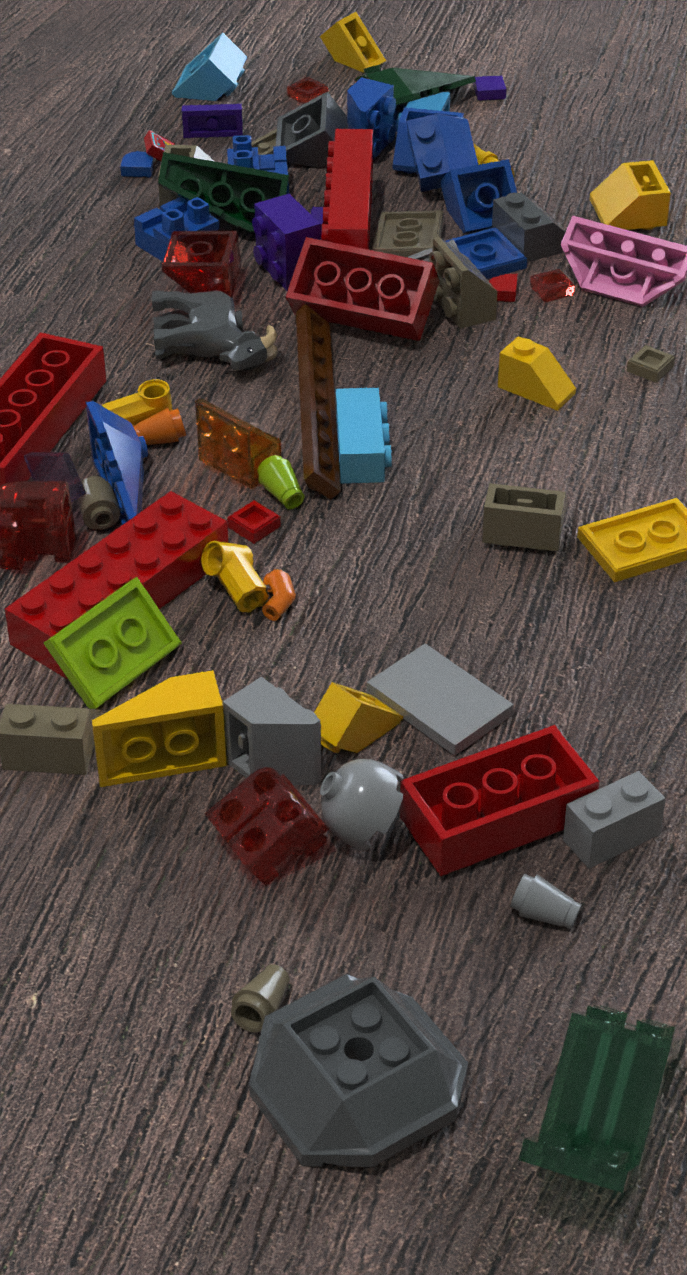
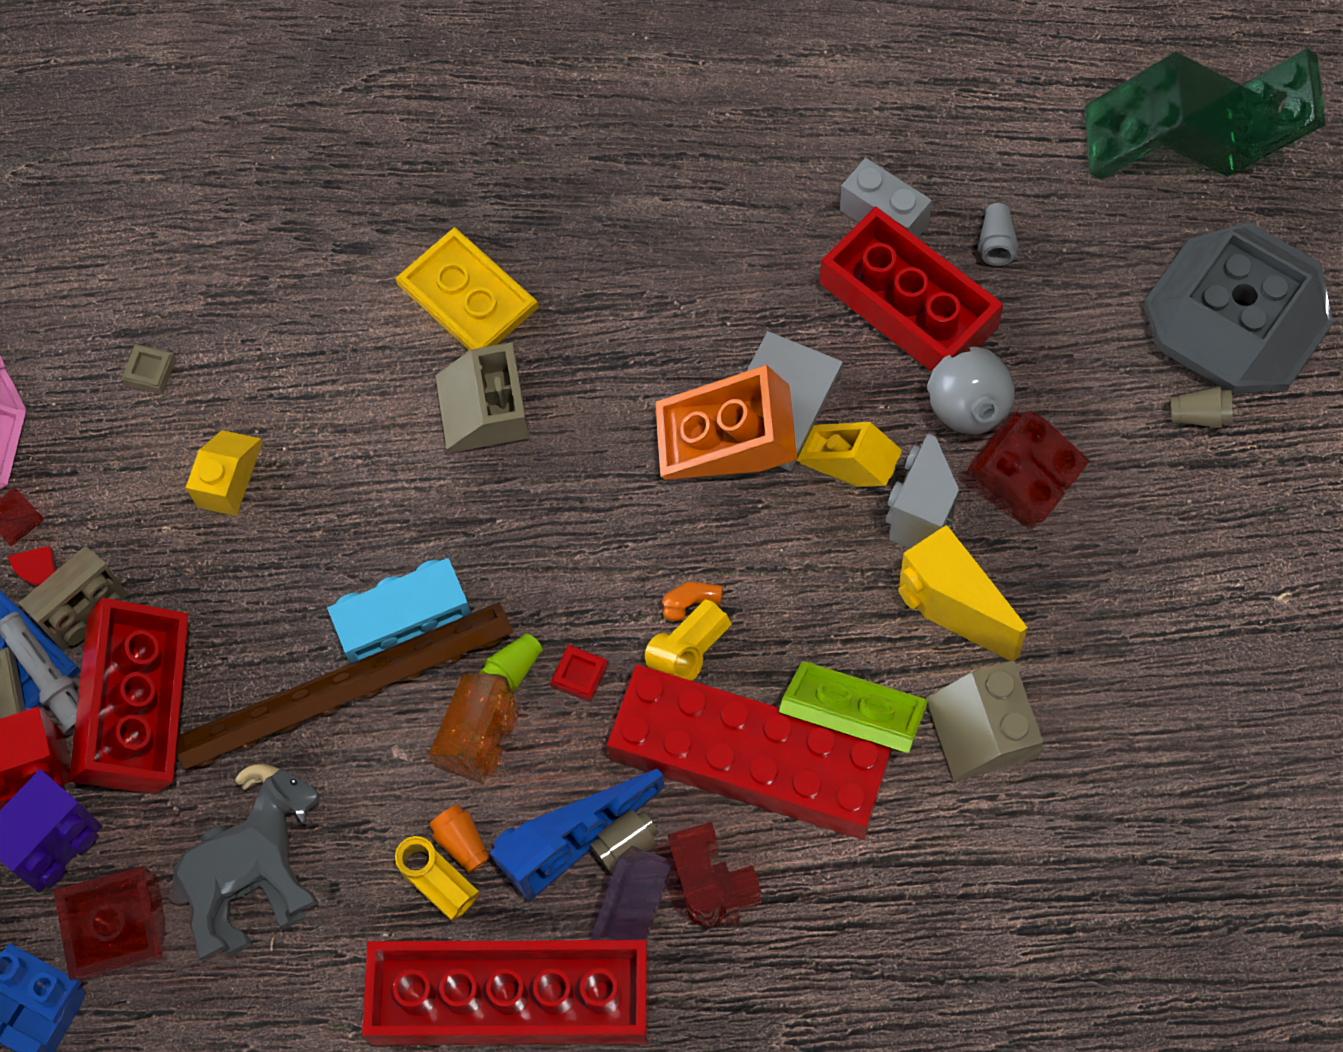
camera: 105 degrees left, 25 degrees up
(414, 639) = (727, 427): none -> orange slope

